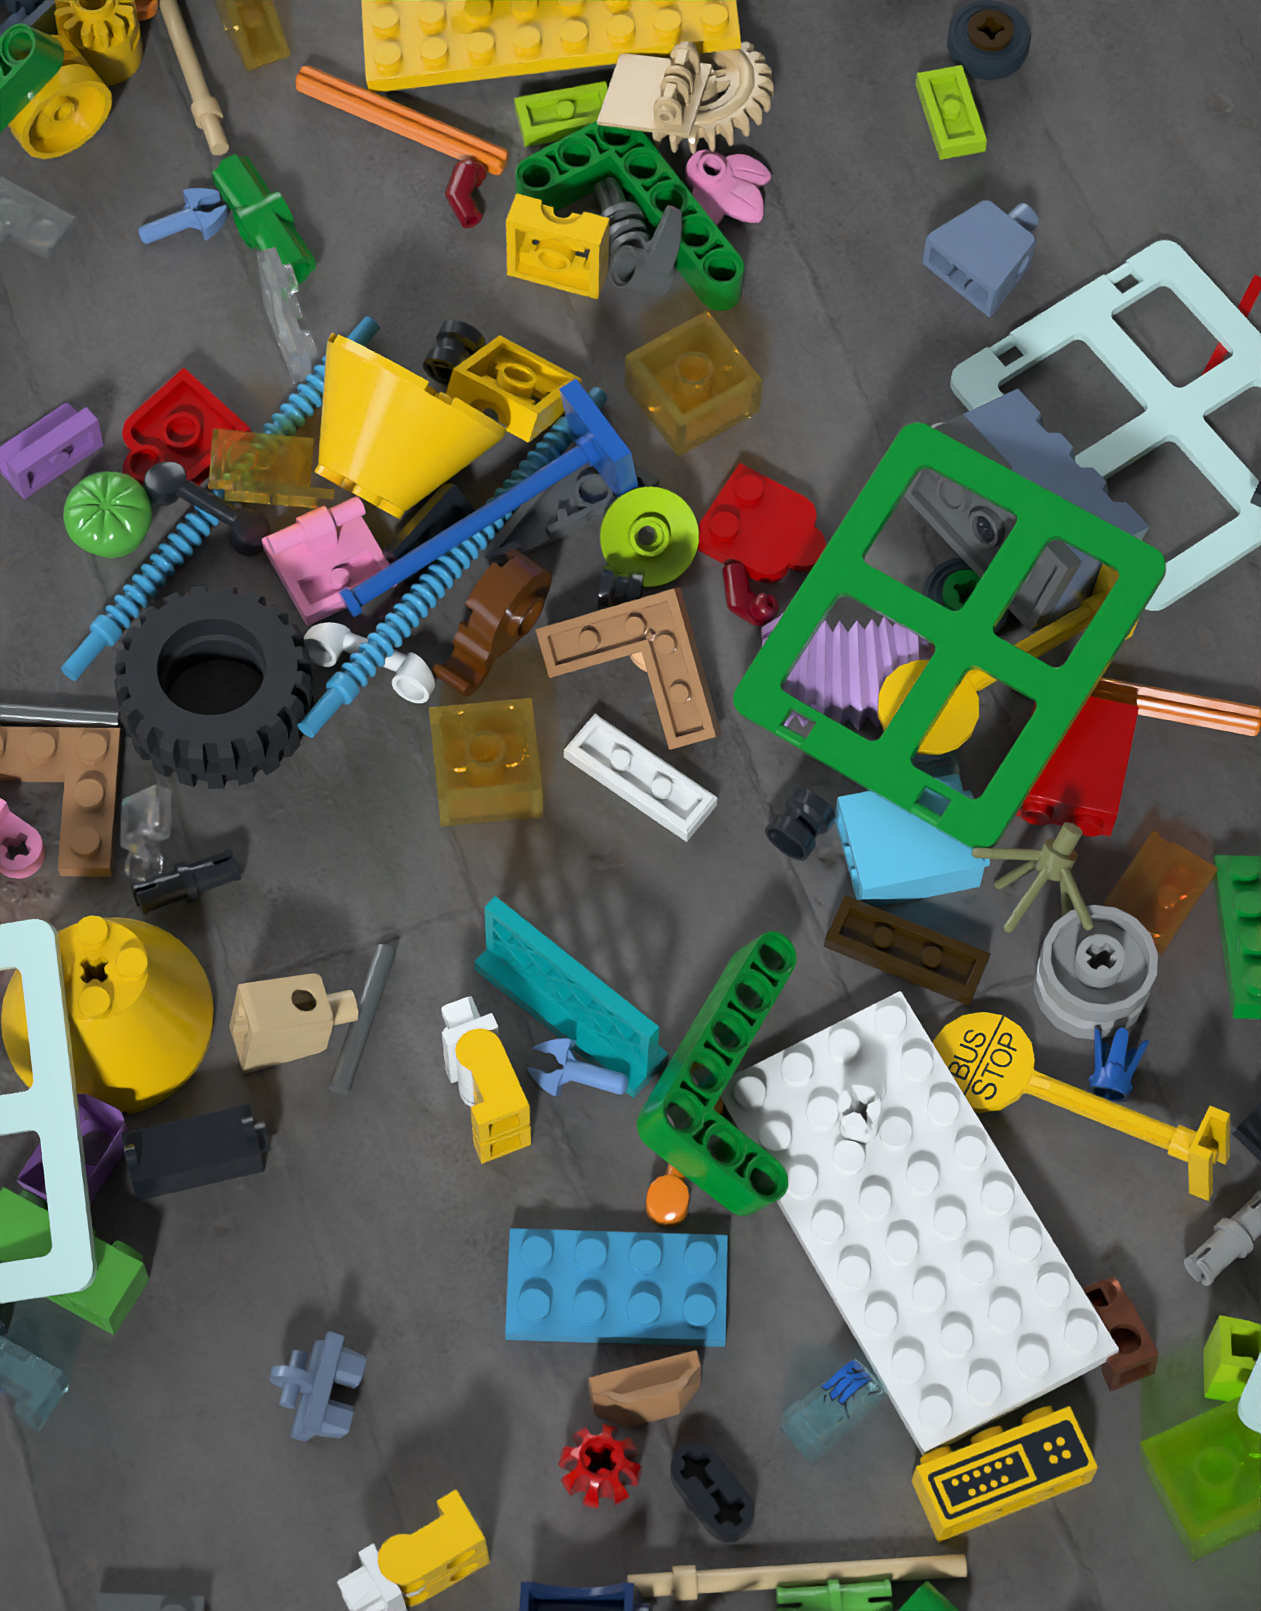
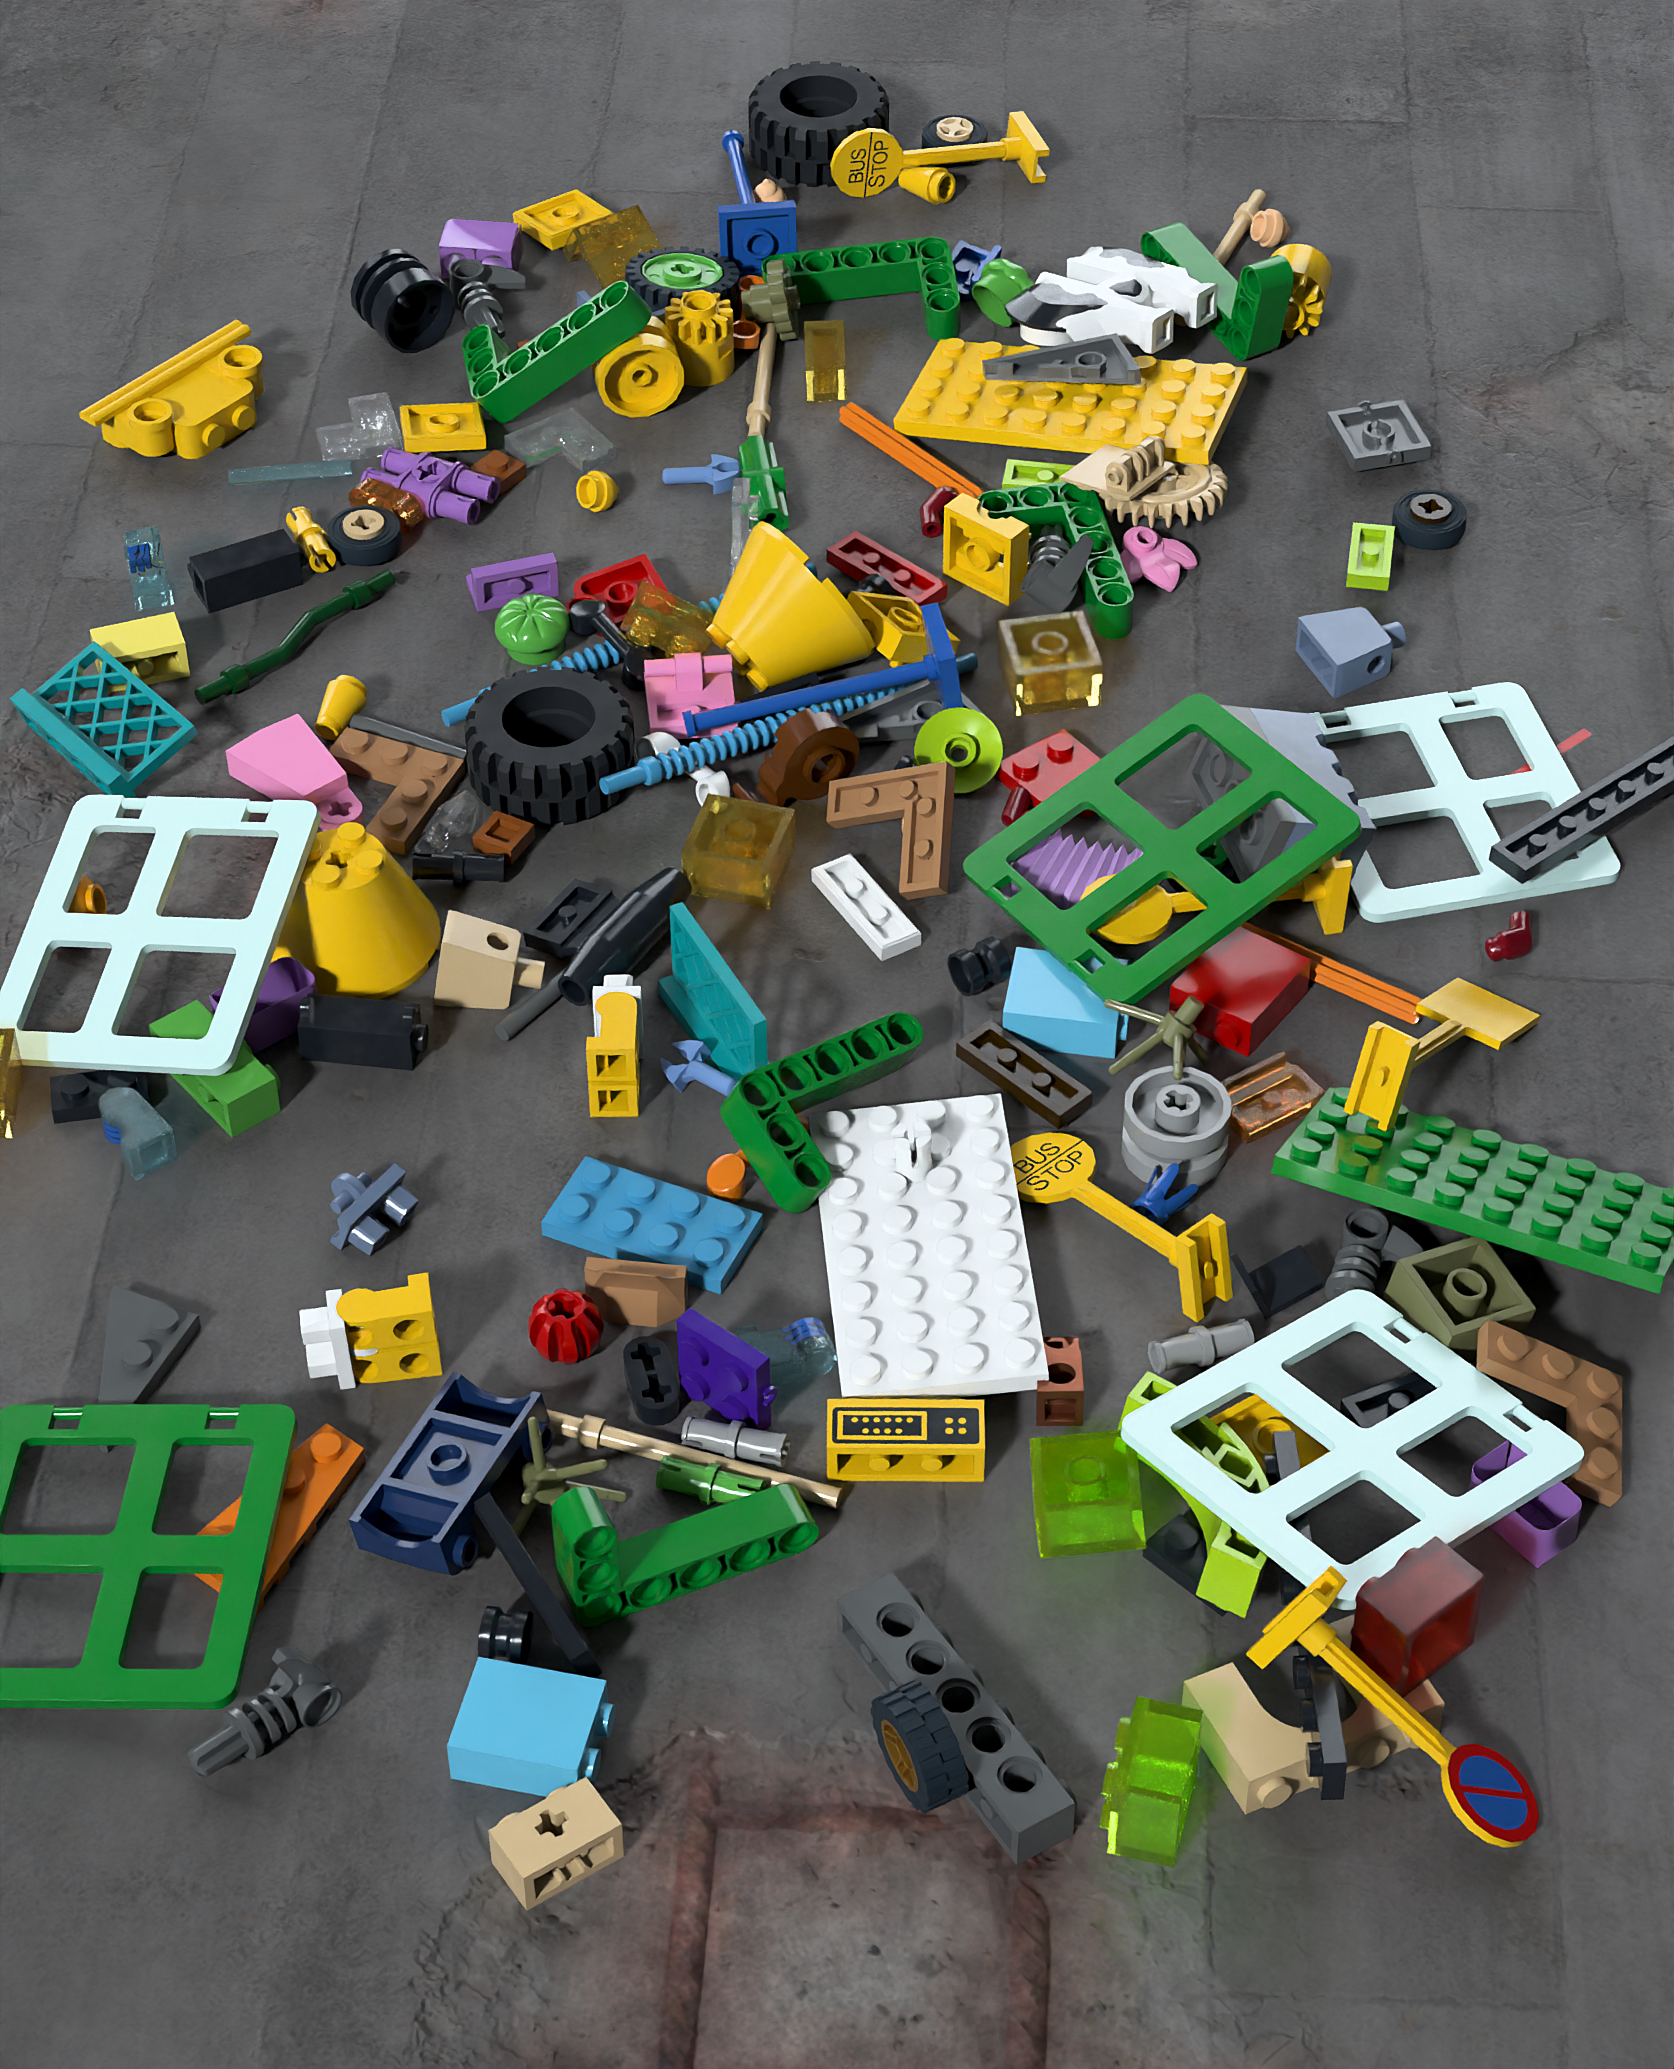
camera: 25 degrees right, 20 degrees down
(80, 286) = (596, 491): none -> yellow plate
(215, 822) = (504, 836): none -> dark orange plate
(398, 919) = (603, 931): none -> black plate
(445, 297) = (862, 556): none -> red plate
(788, 1470) = (724, 1371): none -> dark purple plate
(835, 1539) = (736, 1441): none -> light grey pin

